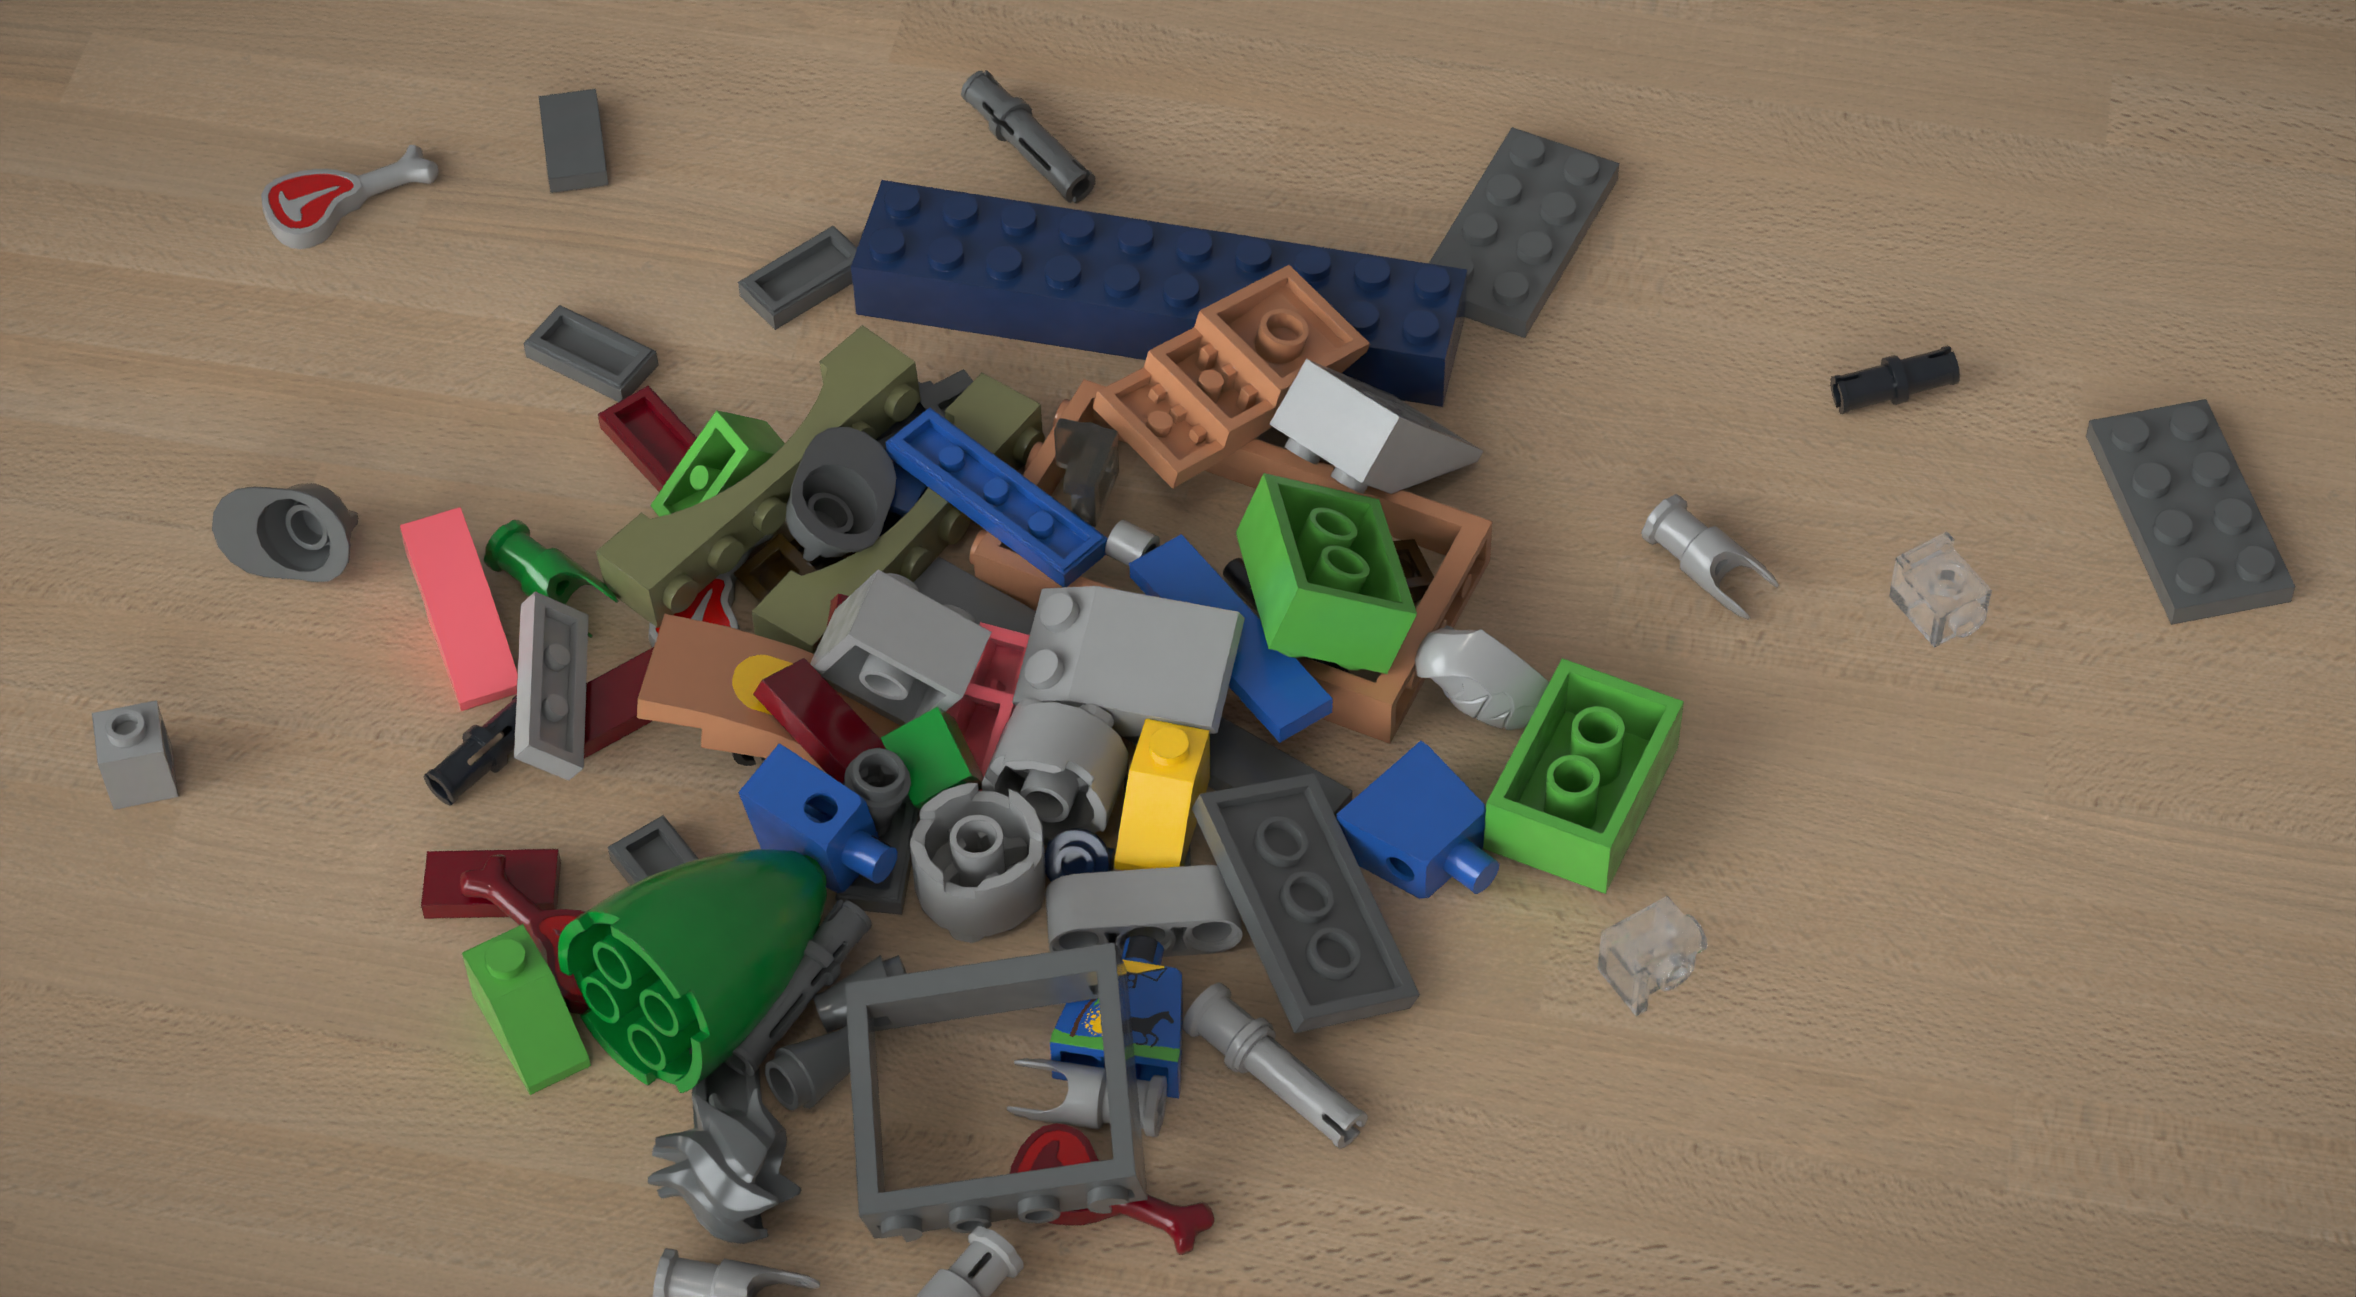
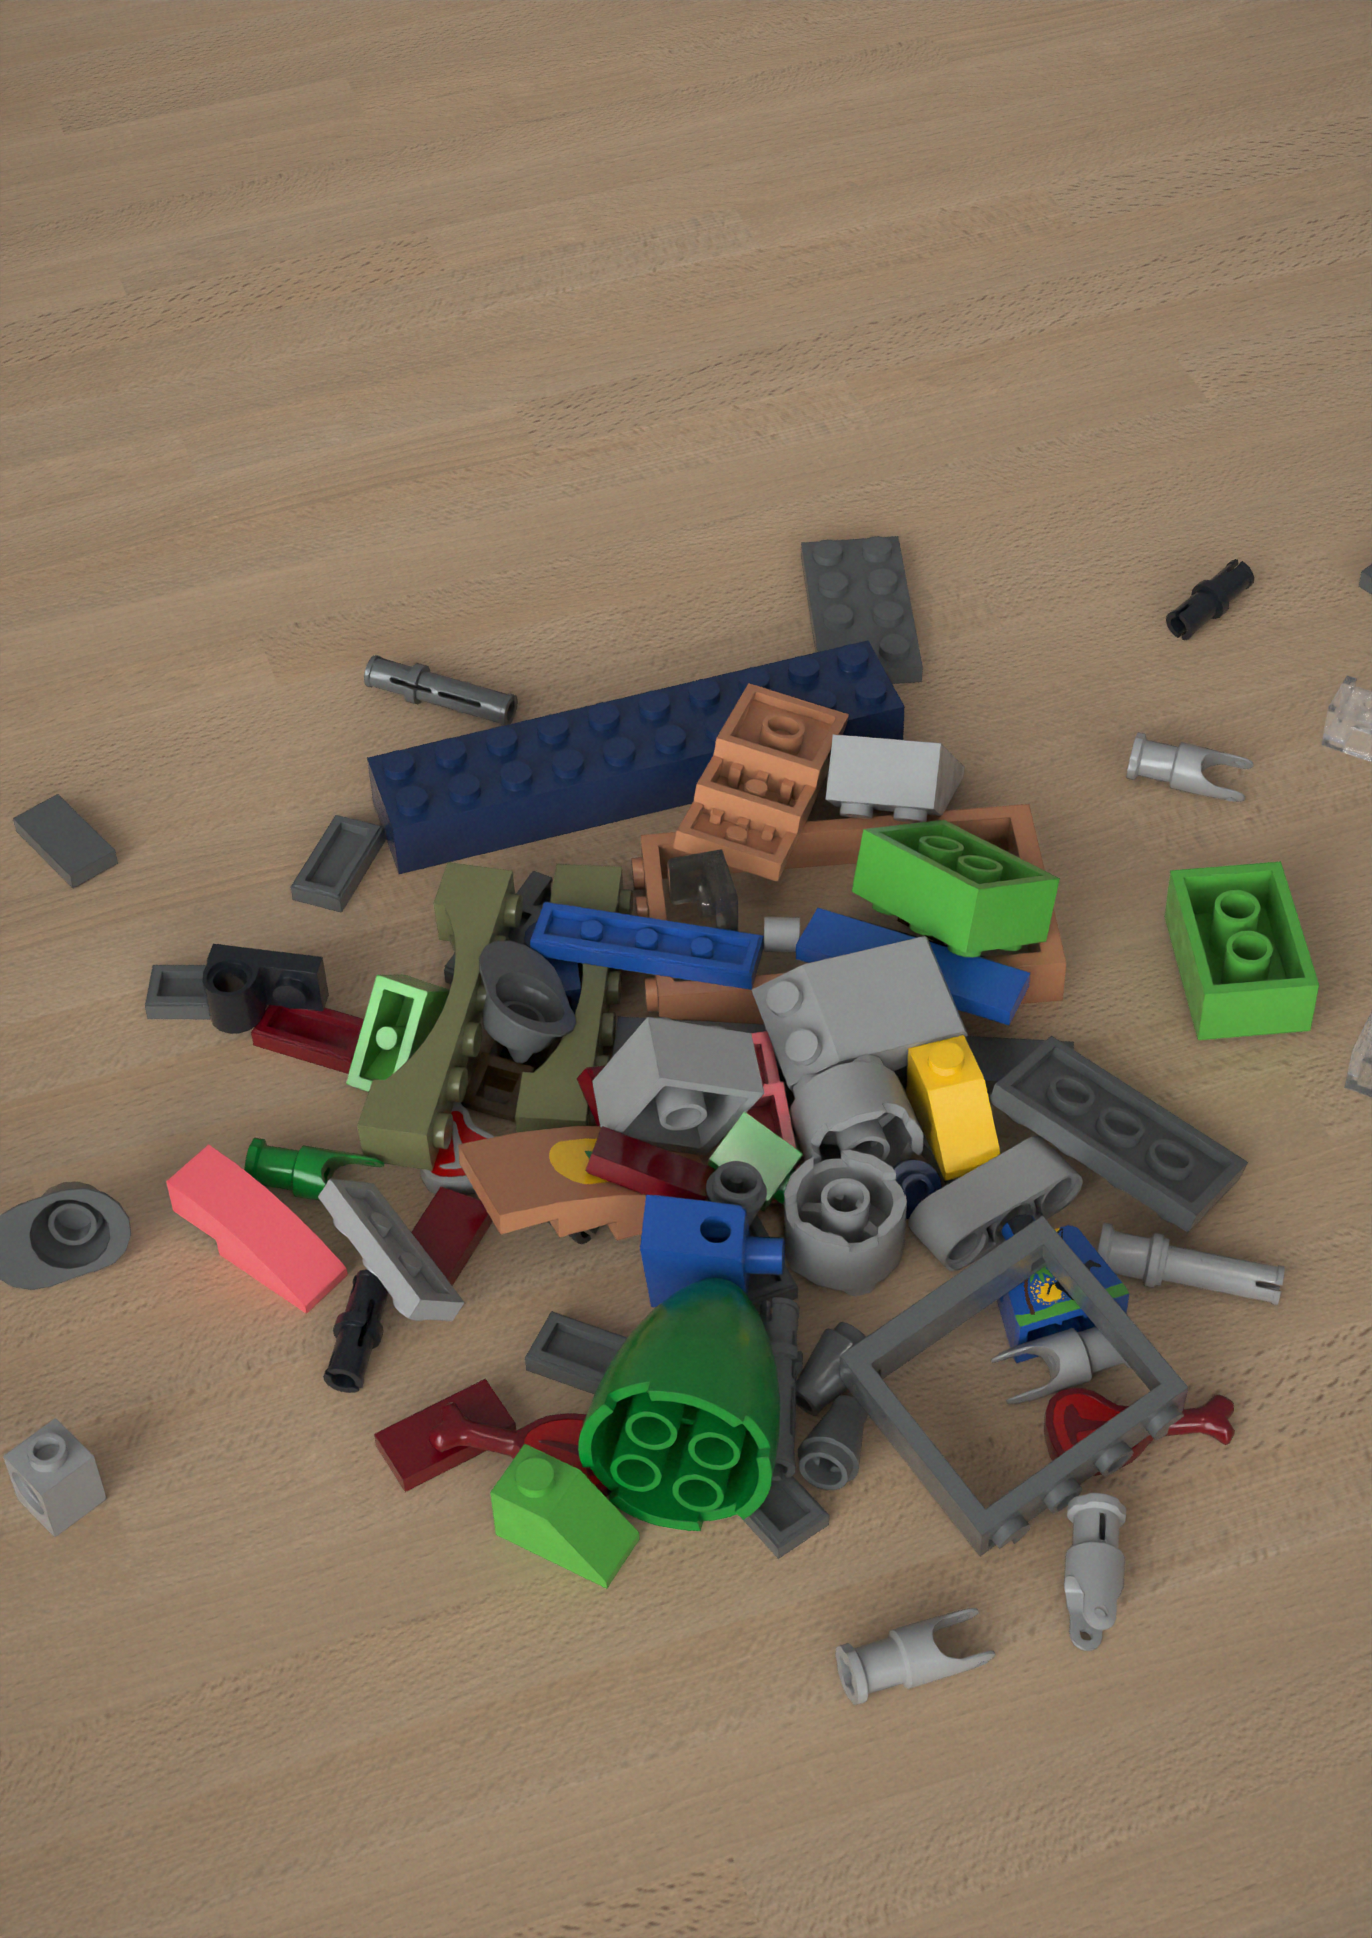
camera: 30 degrees left, 5 degrees down
(609, 362) = (246, 980): none -> black plate
(727, 1167) = (841, 1555): dark grey hair -> none
(1419, 827) = (1151, 1040): blue torso -> none
(1481, 676) = (1113, 912): light grey piece -> none

